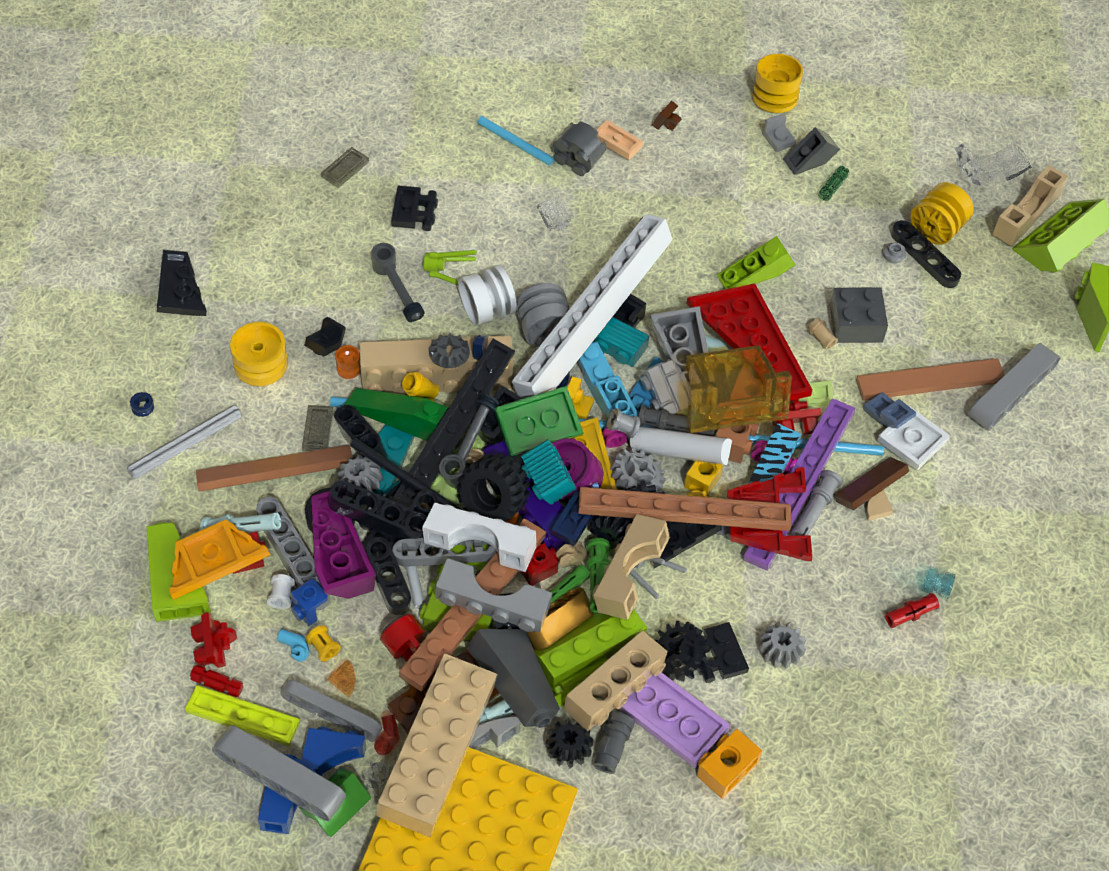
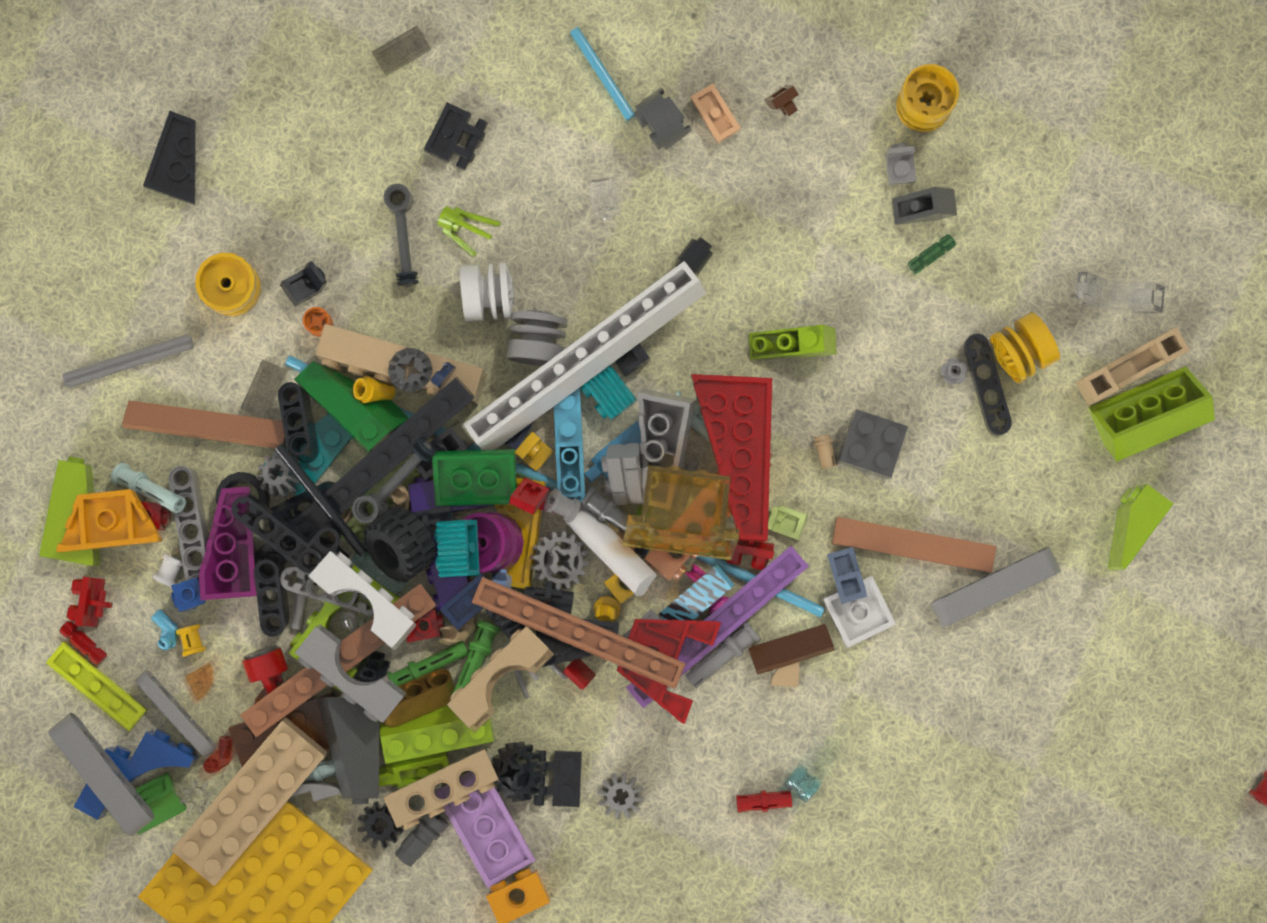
camera: 20 degrees right, 30 degrees up
(148, 406) = (95, 293): dark blue bush -> none
(593, 423) = (529, 496): none -> red bracket
(695, 563) = (579, 673): none -> red slope

